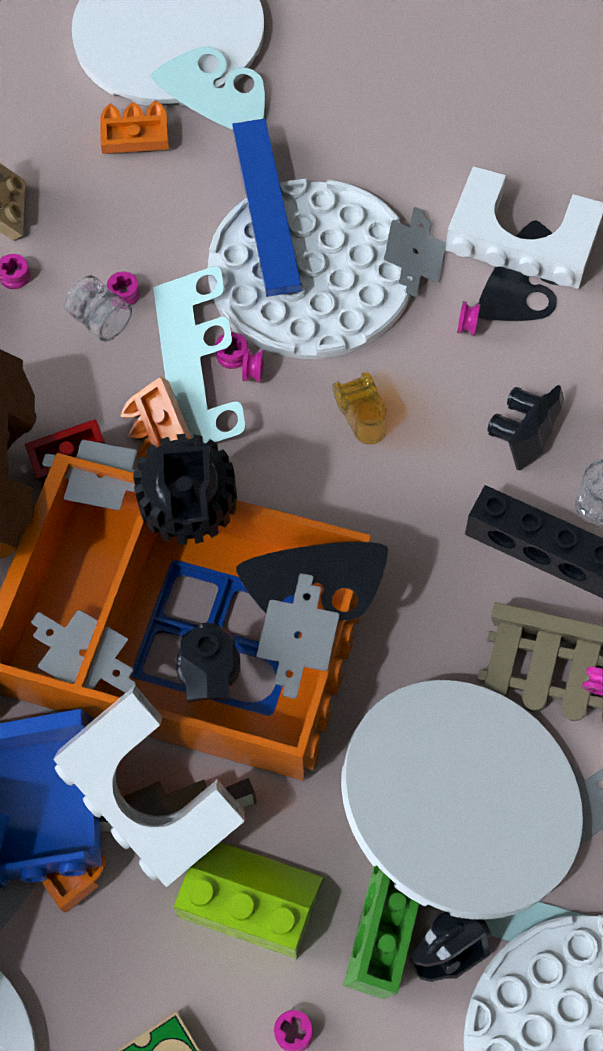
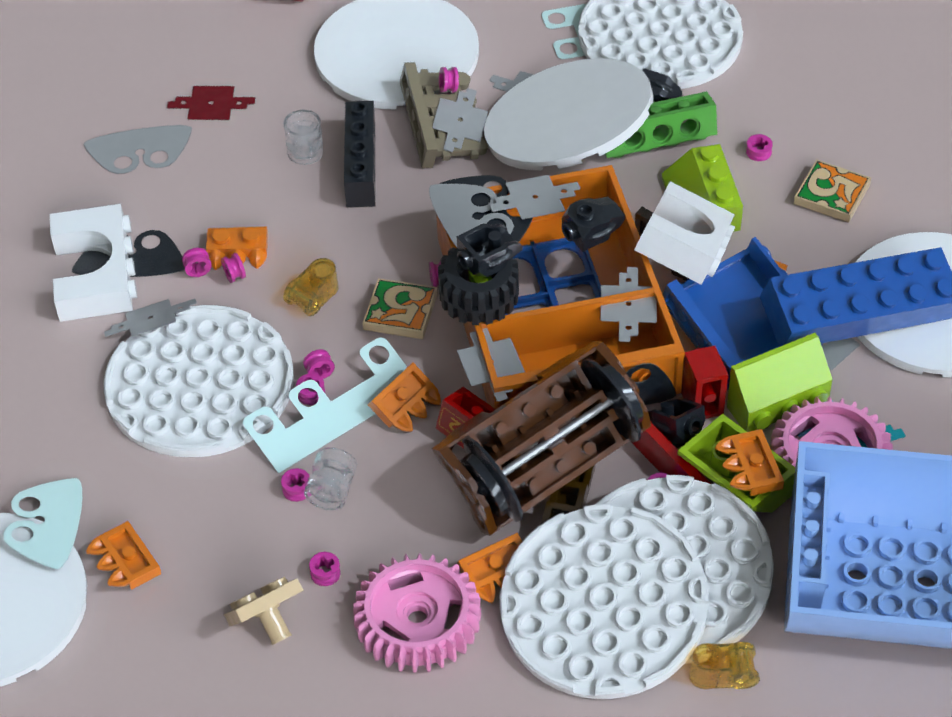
camera: 120 degrees left, 15 degrees down
(266, 208) = (159, 422): blue tile -> none
(287, 477) = (400, 308): none -> tile
(329, 539) = (455, 208): none -> light grey piece
(439, 347) = (233, 267): none -> dark pink bush
(480, 373) = (244, 241): none -> orange plate
(529, 436) = (278, 188): black connector -> none
(543, 697) = (447, 120): none -> light grey piece

